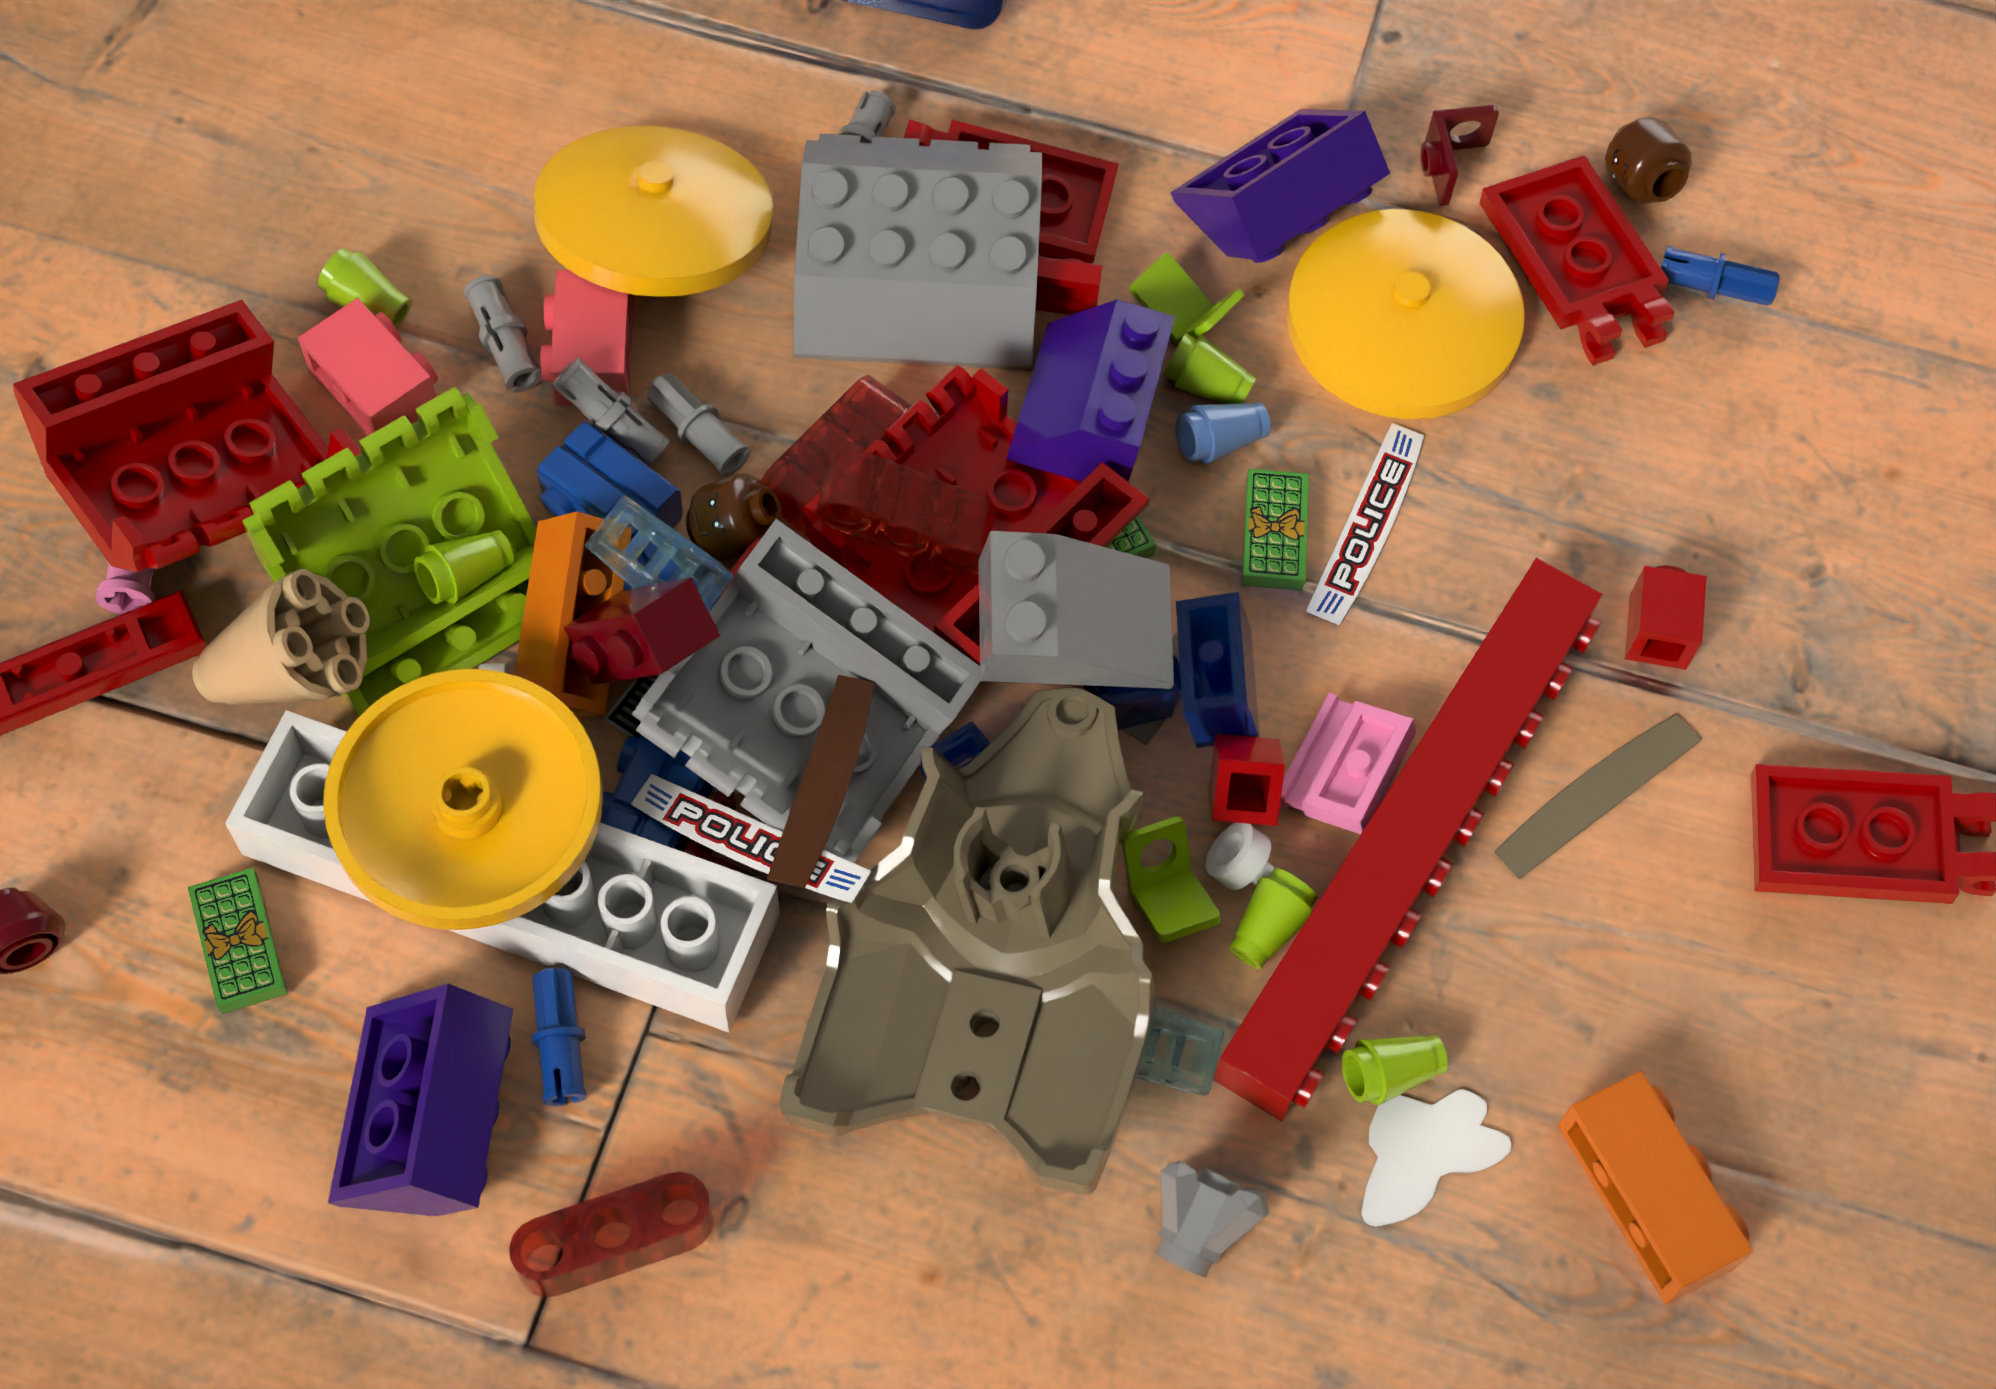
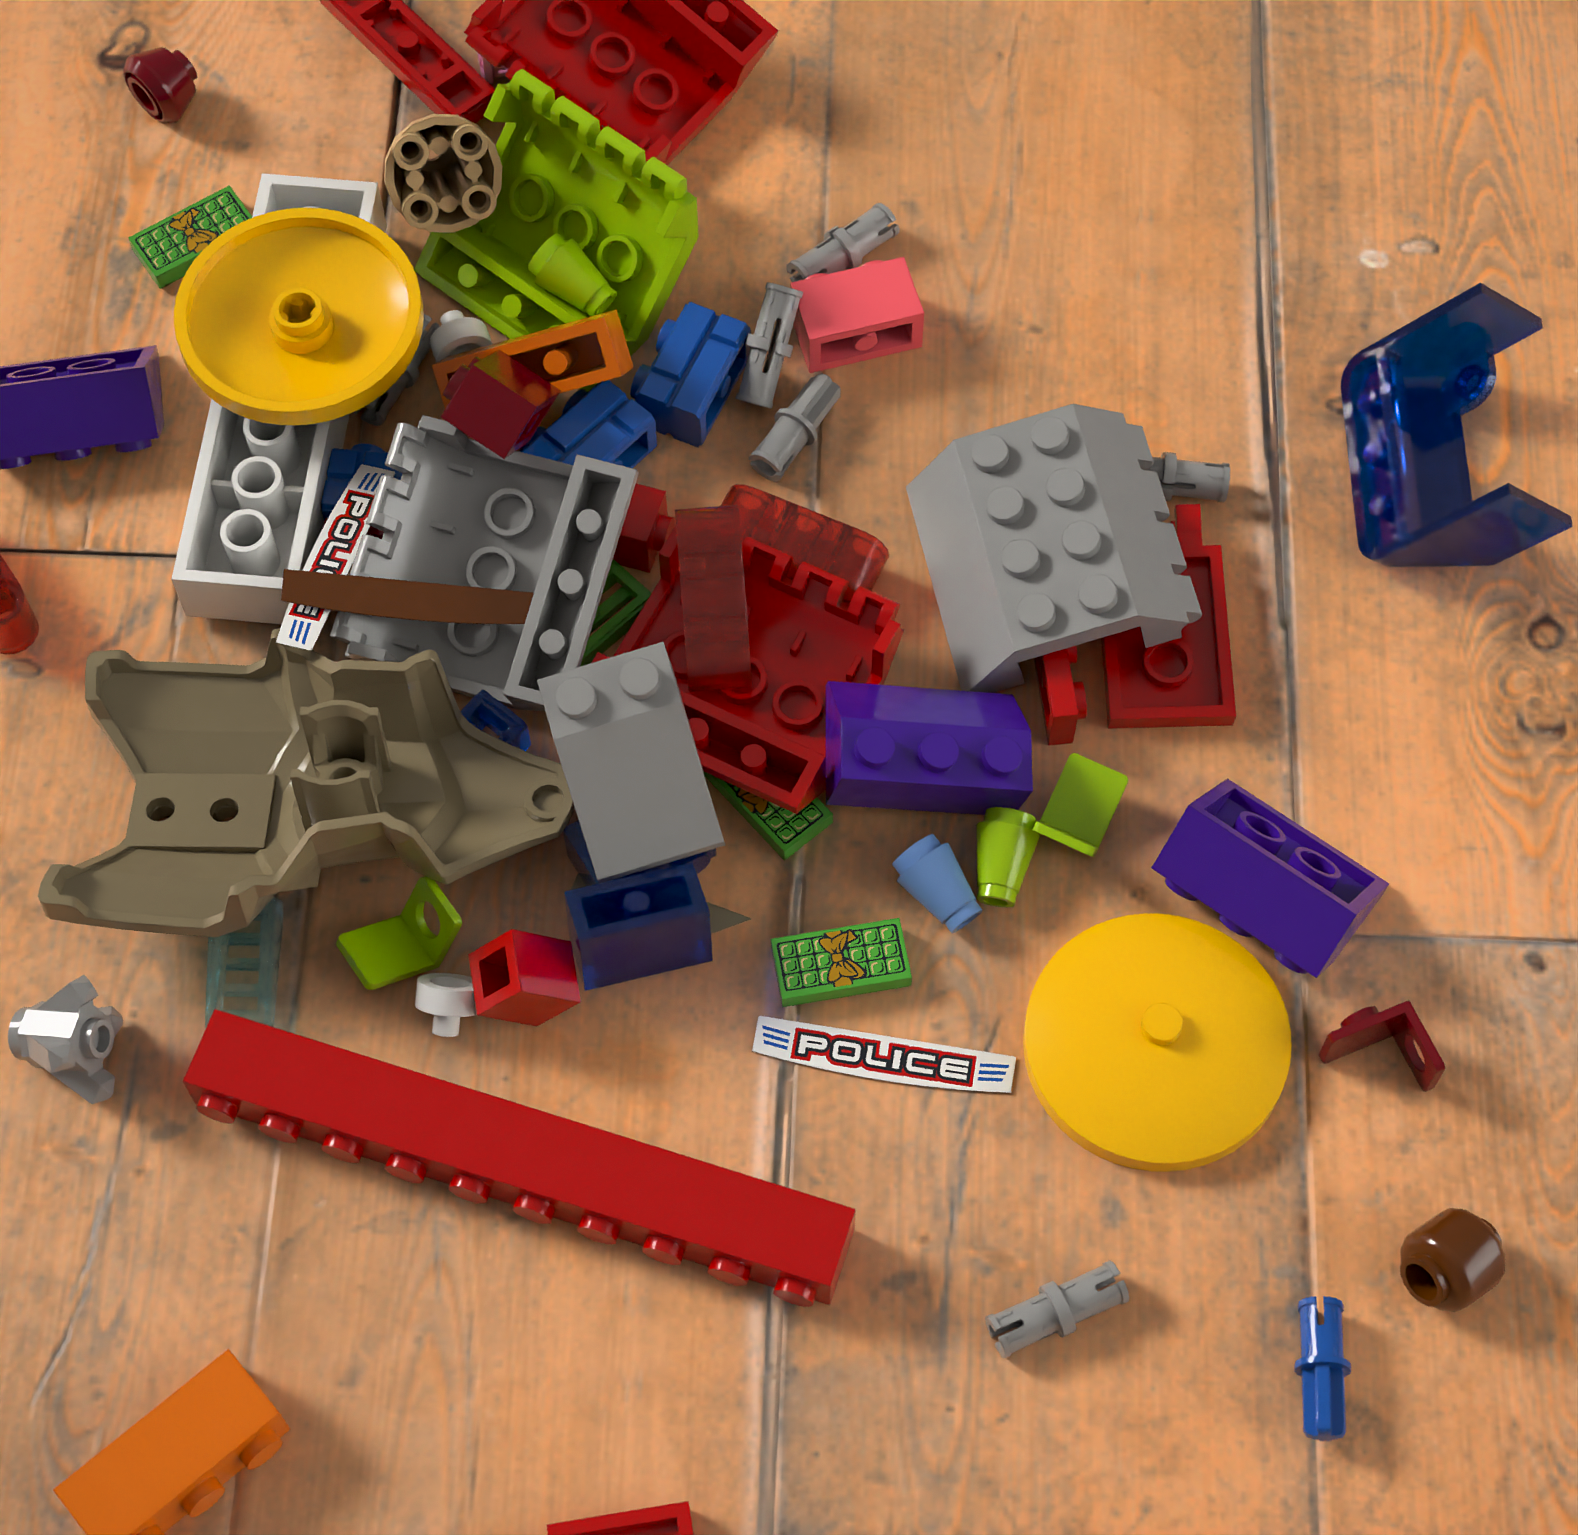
camera: 80 degrees right, 0 degrees up
(355, 276) = (850, 128): lime cone -> none
(367, 367) = (760, 159): coral brick -> none
(558, 1037) = (143, 486): blue axle -> none
(653, 211) = (1008, 317): yellow dish -> none
(691, 559) = (560, 420): clear light blue slope -> none
(731, 515) = (689, 471): reddish brown head -> none
(1272, 917) = (393, 1039): lime cone -> none
(1346, 763) = (582, 1076): bright pink plate -> none
(1390, 1066) = (258, 1184): lime cone -> none
(1420, 1145) = (194, 1238): white sticker -> none
(1580, 254) = (1301, 1208): red tile -> none
(1595, 794) = (625, 1347): dark tan sticker -> none
(1632, 448) = (1057, 1309): none -> light grey pin
(1666, 616) = (844, 1372): red brick -> none

